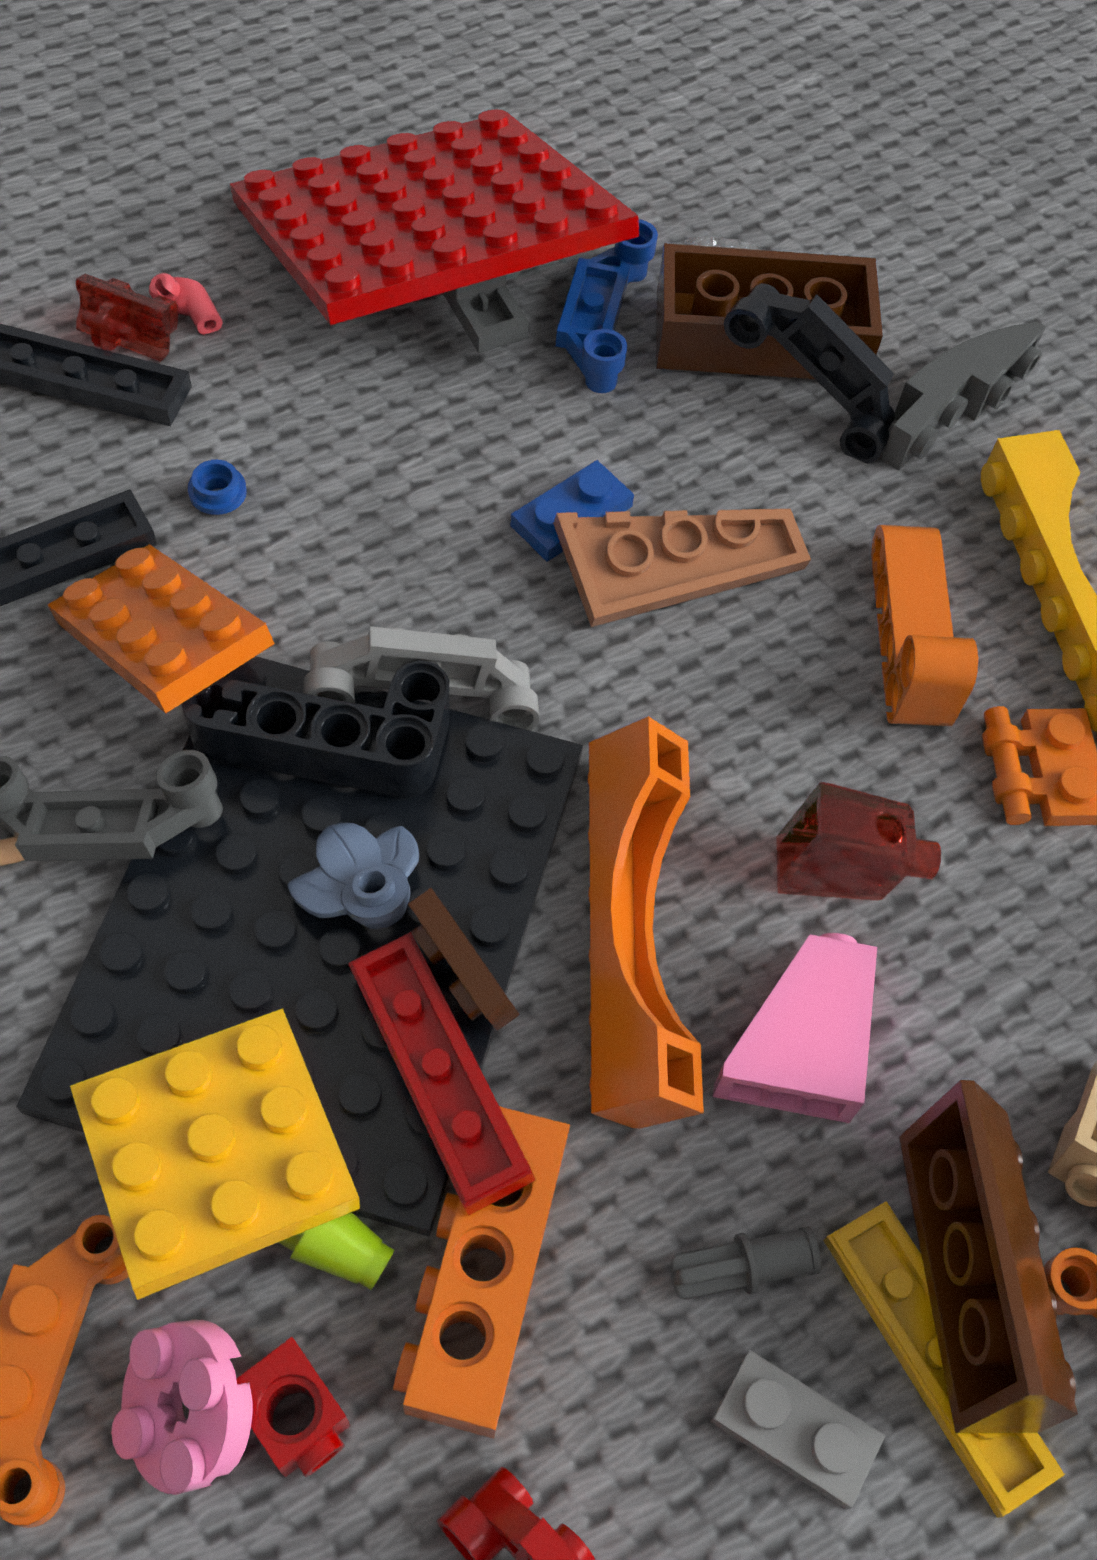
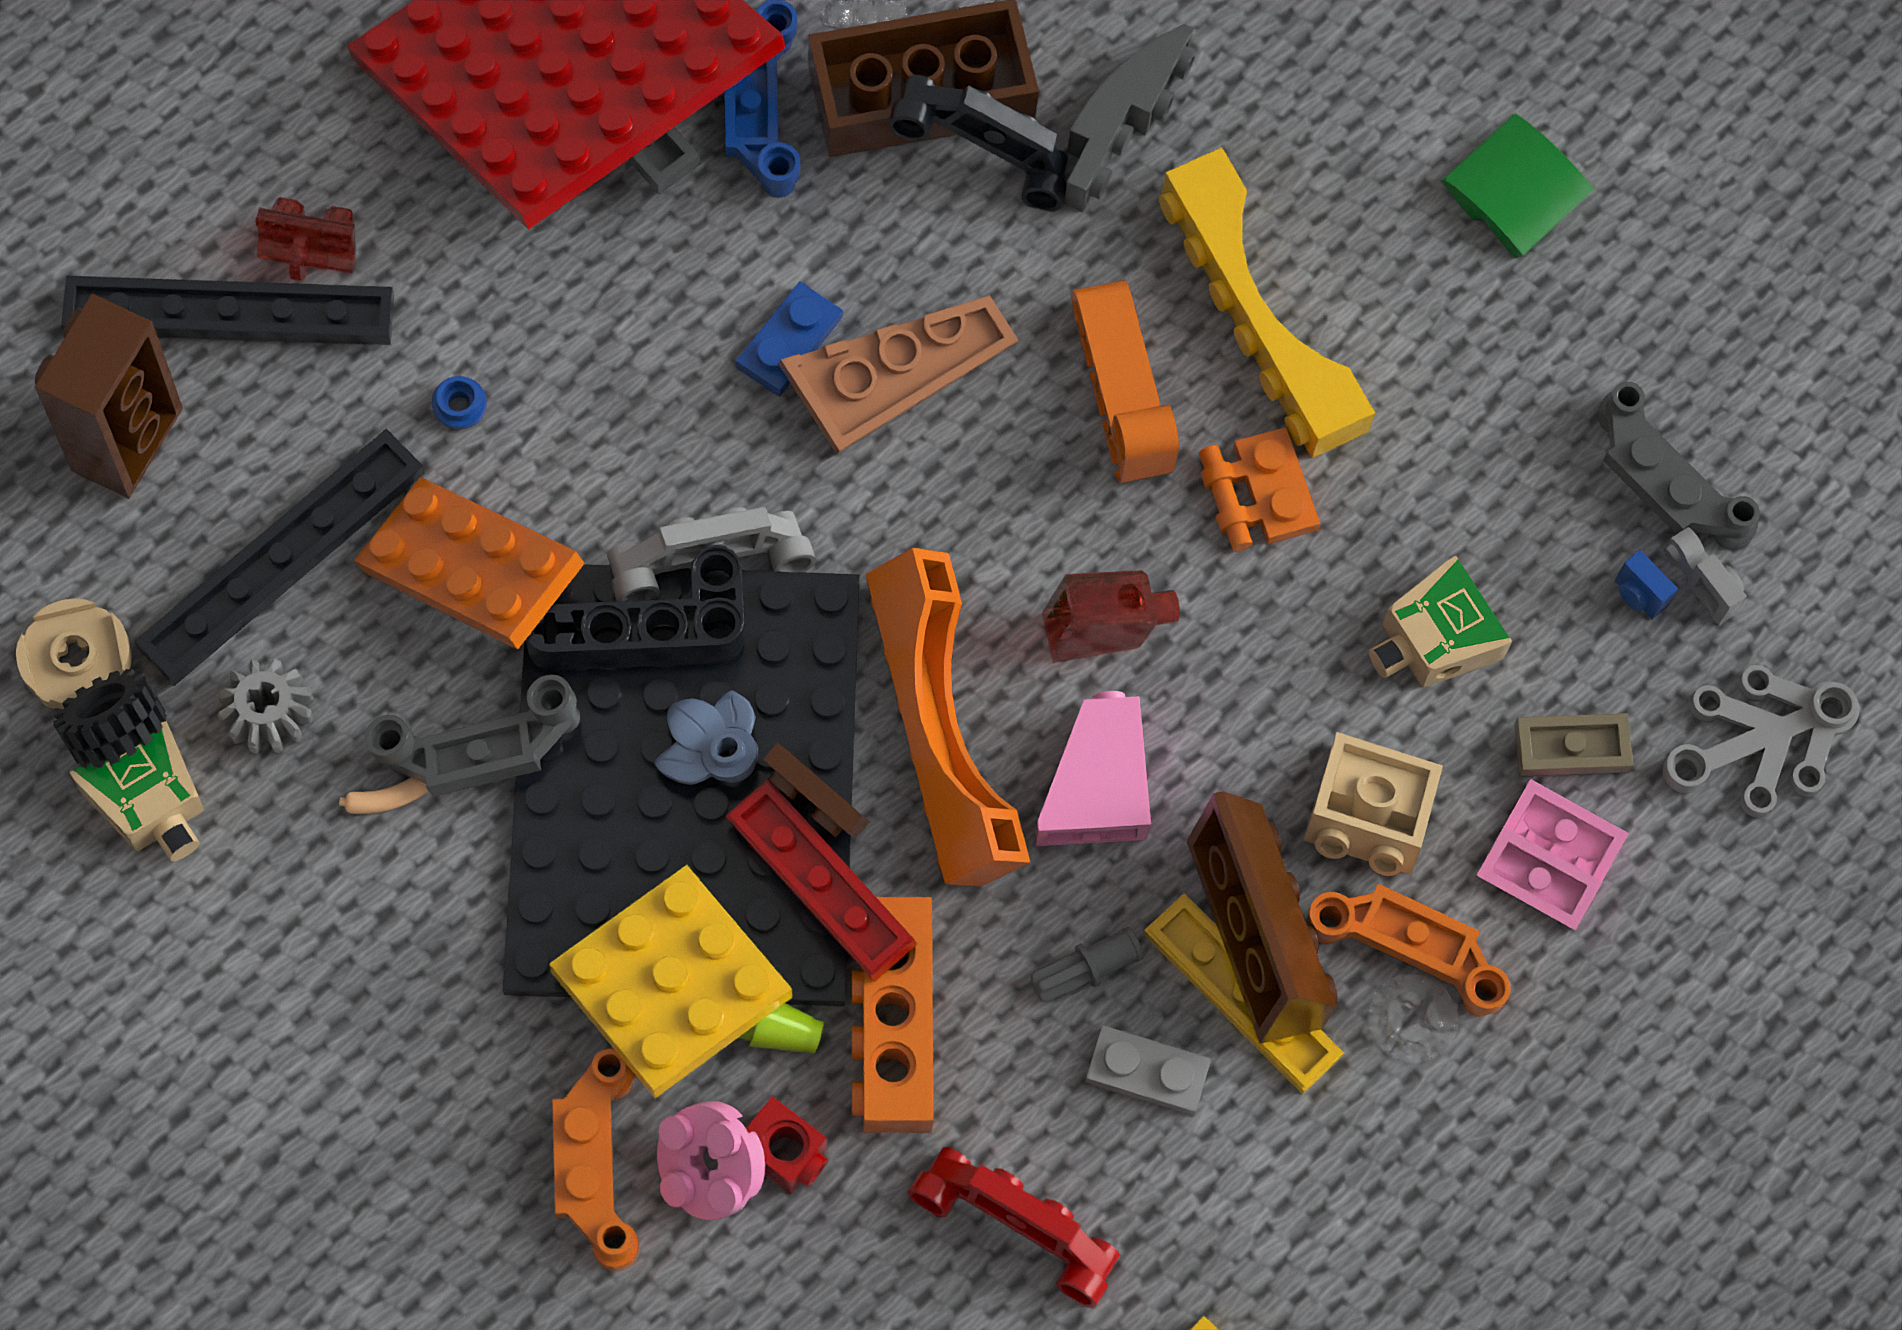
camera: 15 degrees left, 10 degrees up
(191, 300) = (358, 196): coral arm -> none

